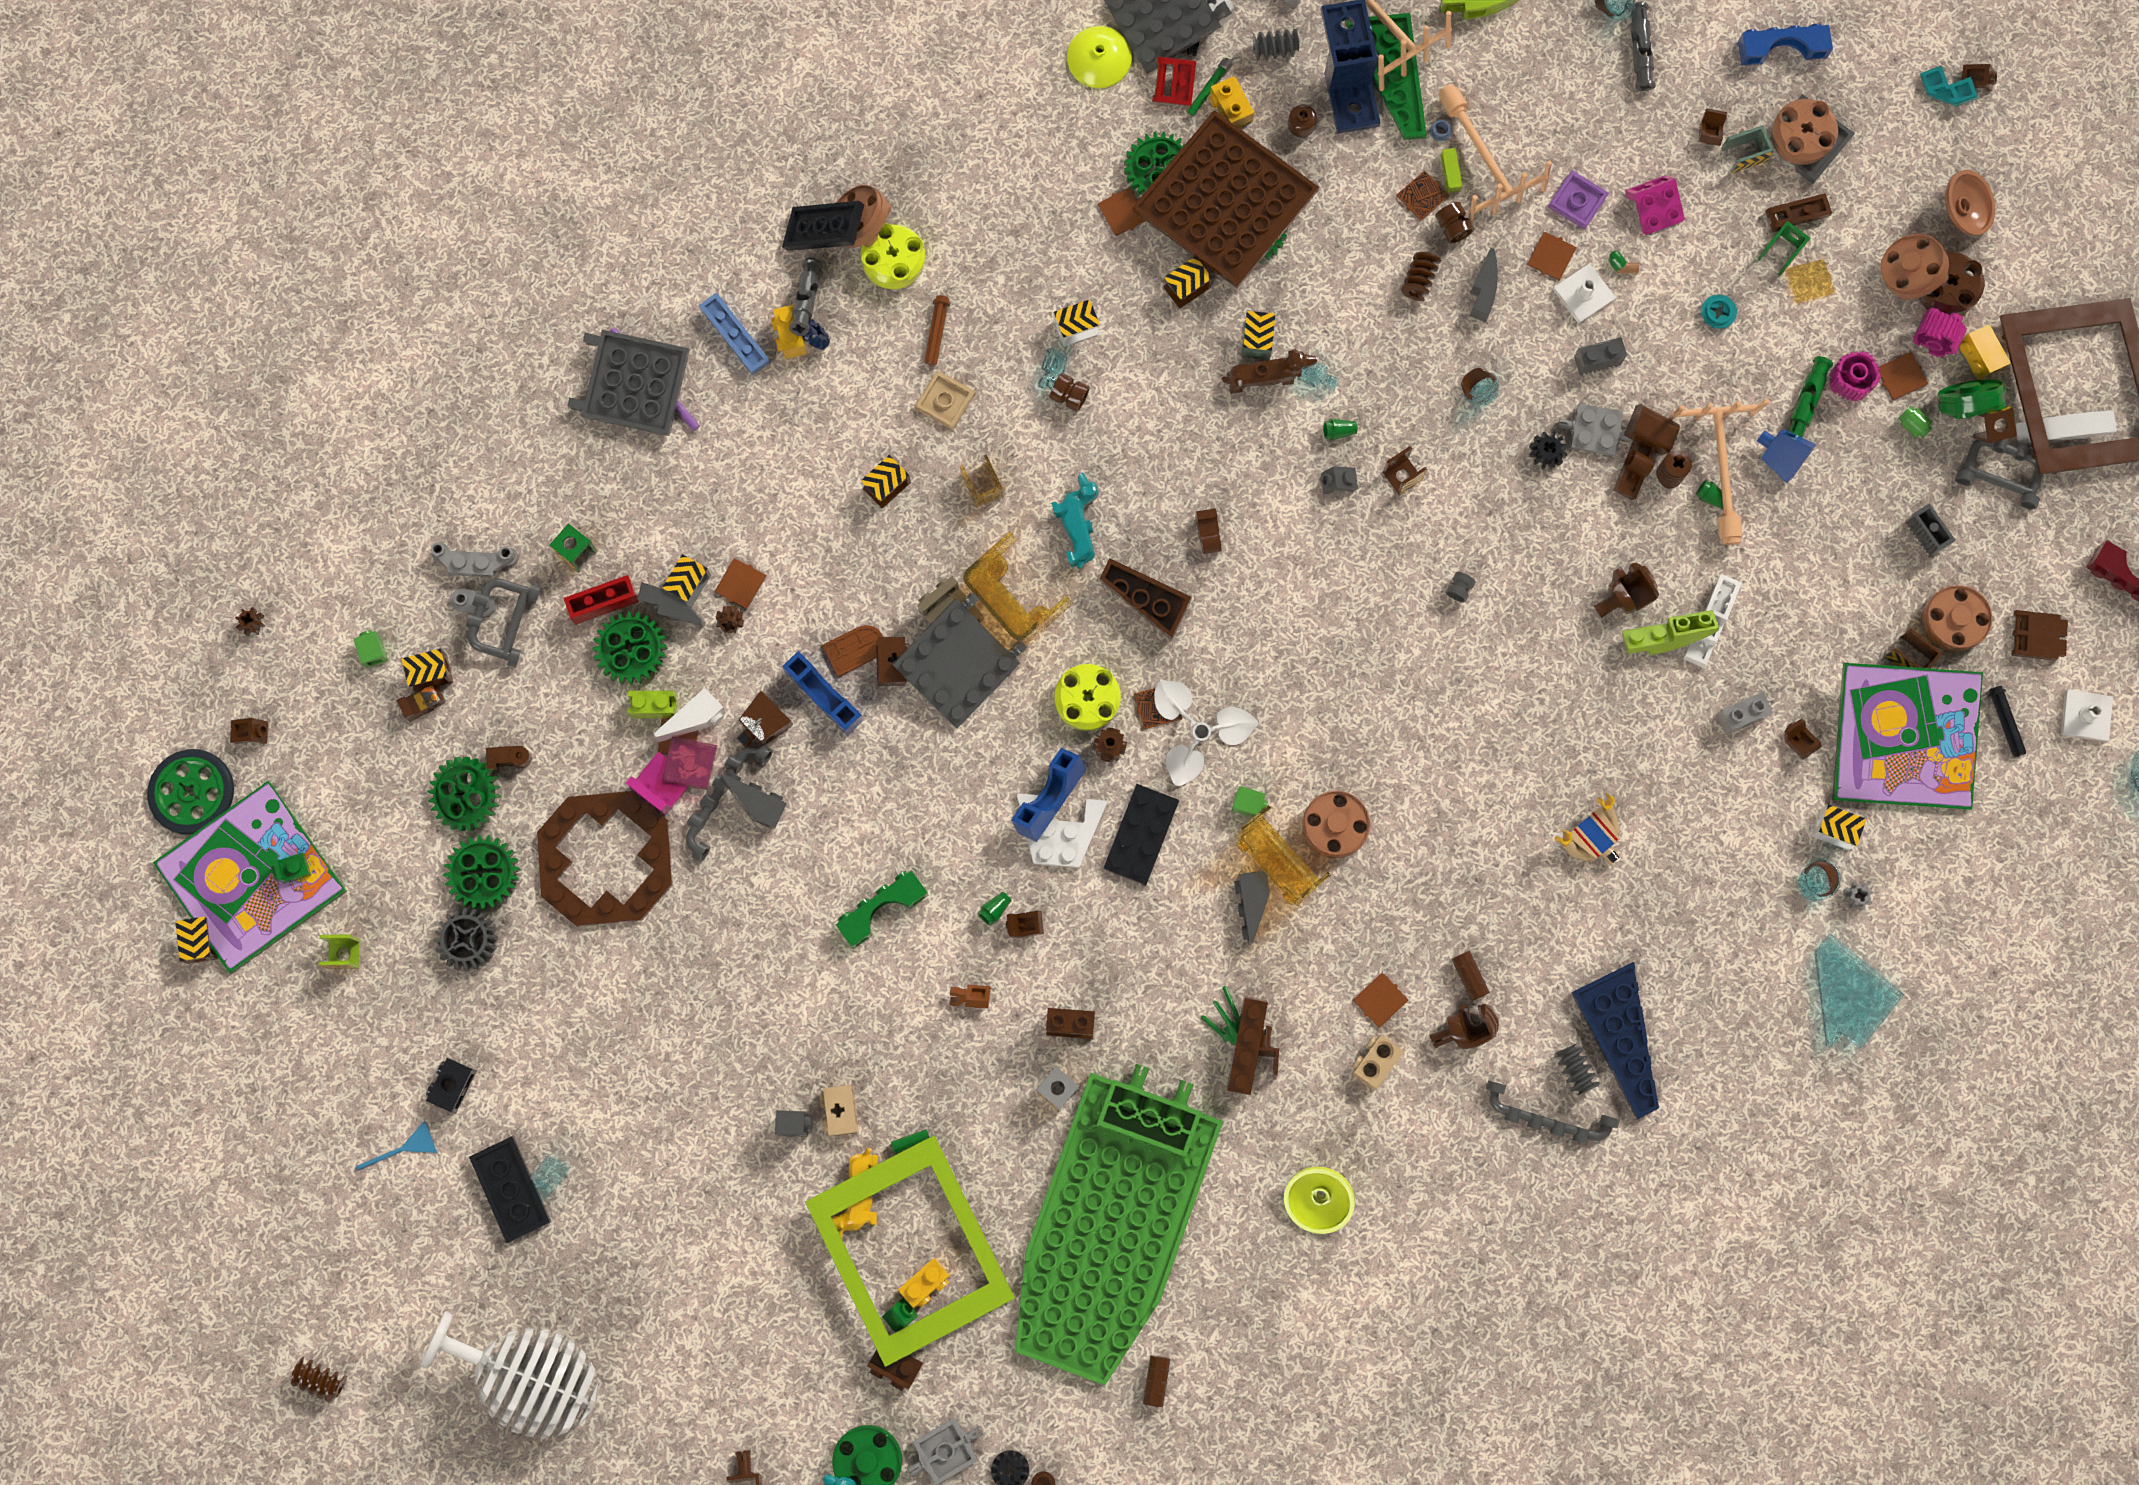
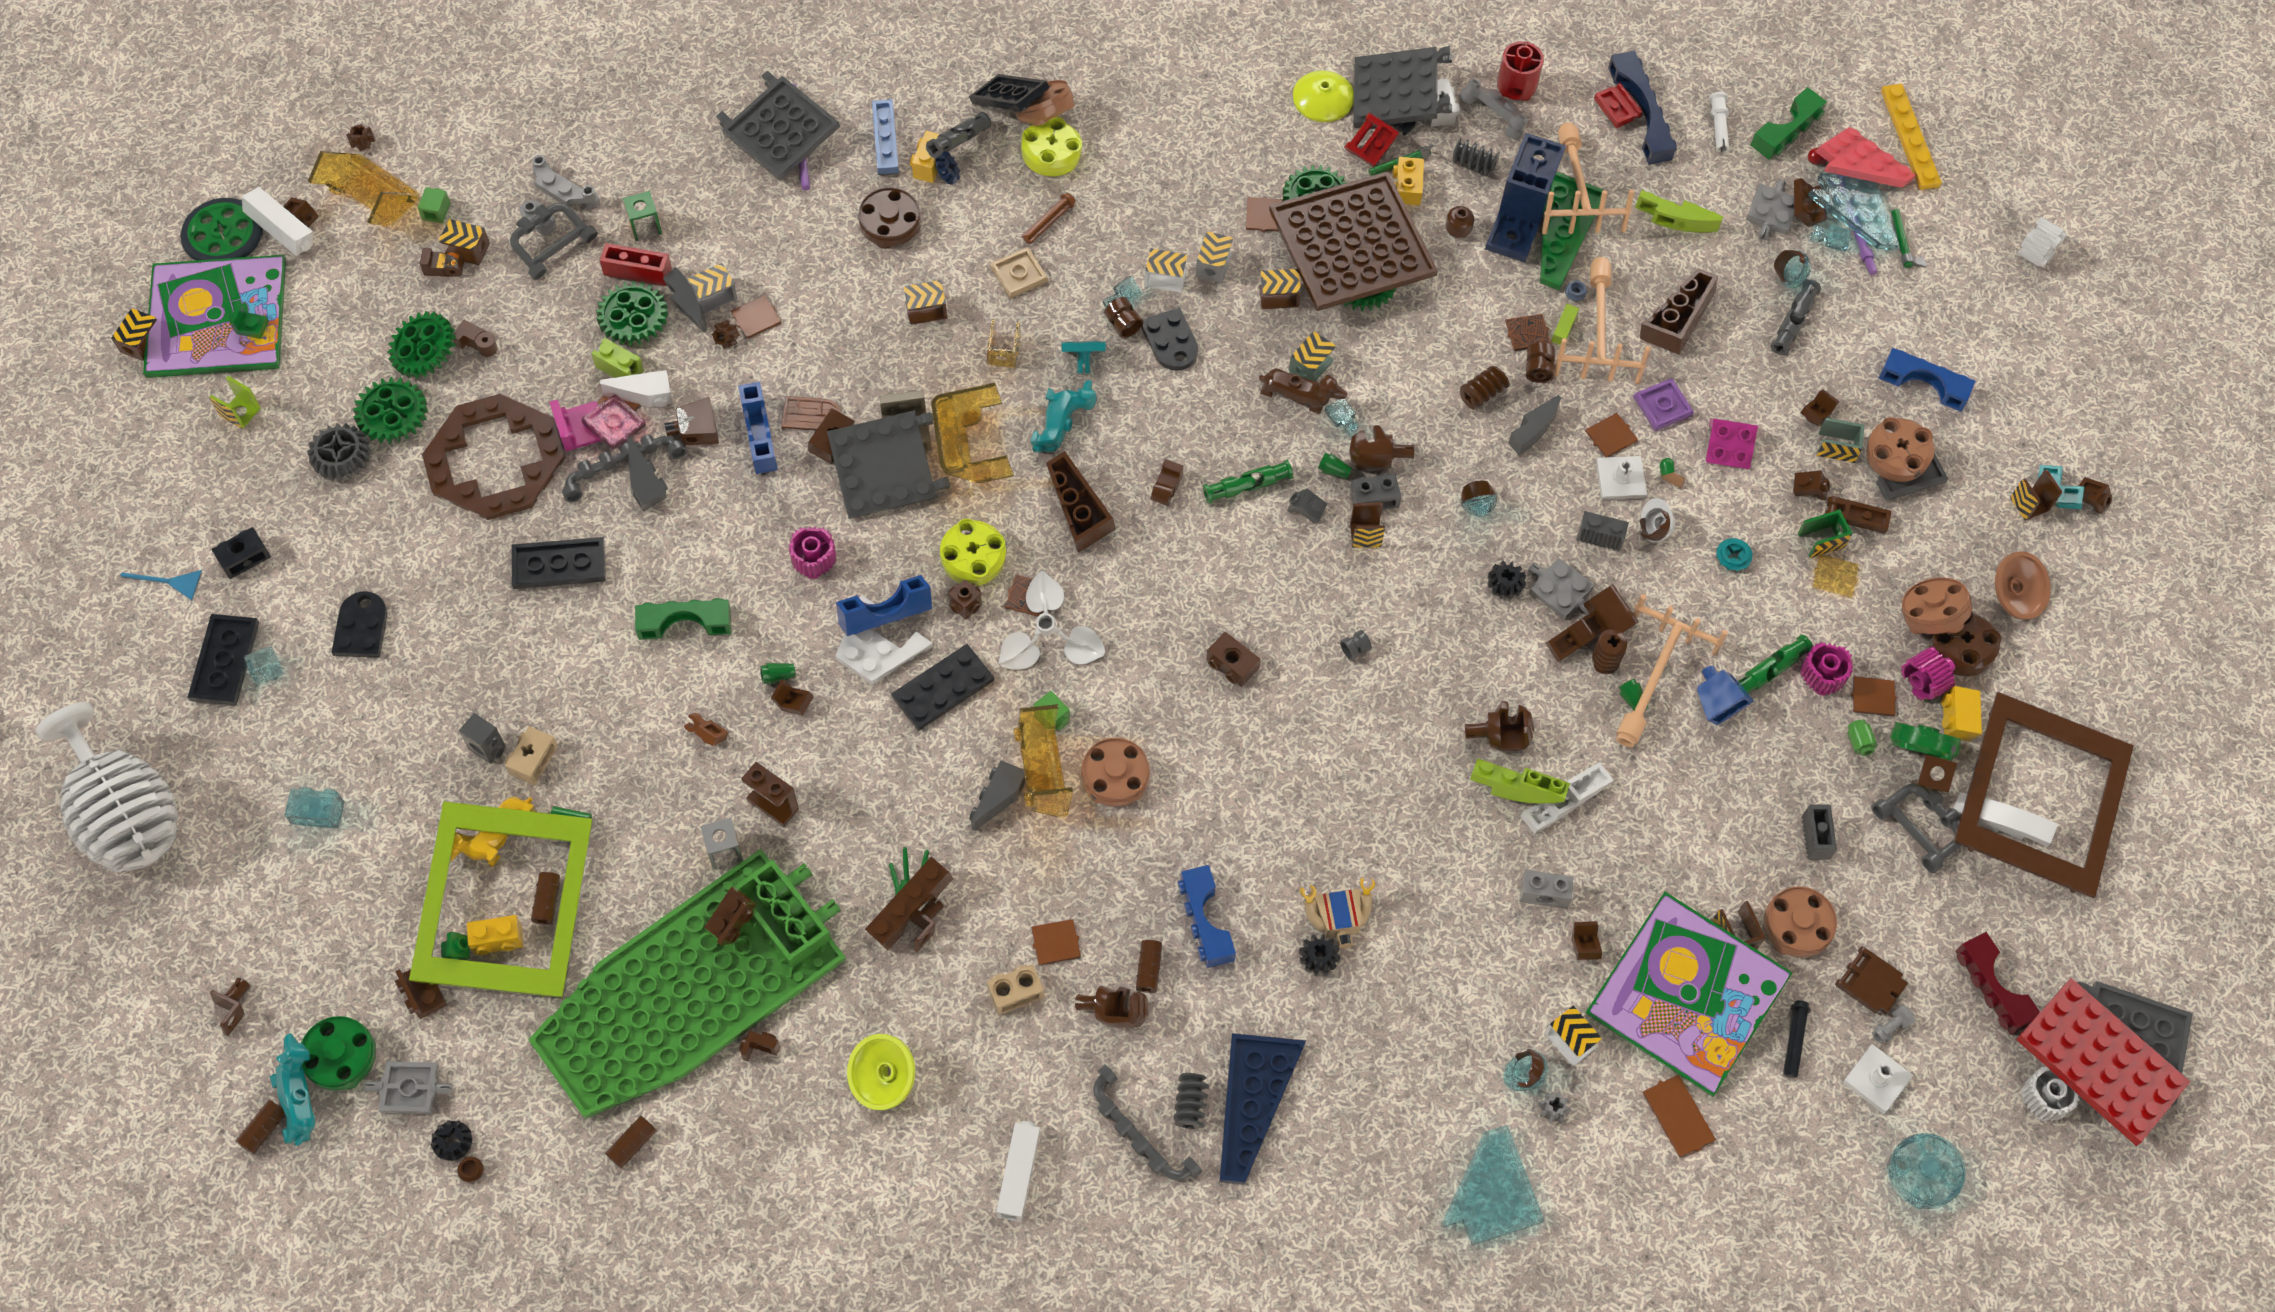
camera: 30 degrees right, 15 degrees down
(239, 753) = (277, 221): none -> white brick
(296, 663) = (365, 182): none -> clear yellow windscreen
(606, 1087) = (360, 629): none -> black plate
(692, 1270) = (314, 807): none -> clear light blue brick
(736, 923) = (558, 563): none -> black plate
(795, 415) = (889, 217): none -> piece
(942, 1225) = (545, 898): none -> reddish brown axle
(943, 770) = (812, 551): none -> dark pink brick
(1055, 446) = (1083, 351): none -> teal tile
(1110, 284) = (1214, 257): none -> piece
(1111, 1149) = (730, 916): none -> reddish brown bracket
(1120, 385) = (1169, 337): none -> black plate
(1207, 1231) = (764, 1042): none -> reddish brown bracket
(1270, 494) = (1233, 486): none -> green piece
(1376, 393) = (1378, 454): none -> reddish brown piece
(1380, 658) = (1229, 648): none -> reddish brown brick
(1390, 433) = (1377, 489): none -> dark grey brick
(1468, 886) = (1215, 944): none -> blue arch
(1478, 1210) = (1018, 1171): none -> white brick
(1545, 109) = (1679, 315): none -> reddish brown wedge
(1605, 876) = (1319, 963): none -> black gear
(1640, 320) = (1656, 521): none -> white piece
(1744, 206) = (1811, 484): none -> reddish brown bracket
(1935, 107) = (2036, 499): none -> reddish brown piece
(1953, 841) = (1679, 1116): none -> dark orange piece
(2078, 651) = (1902, 1016): none -> light grey bar

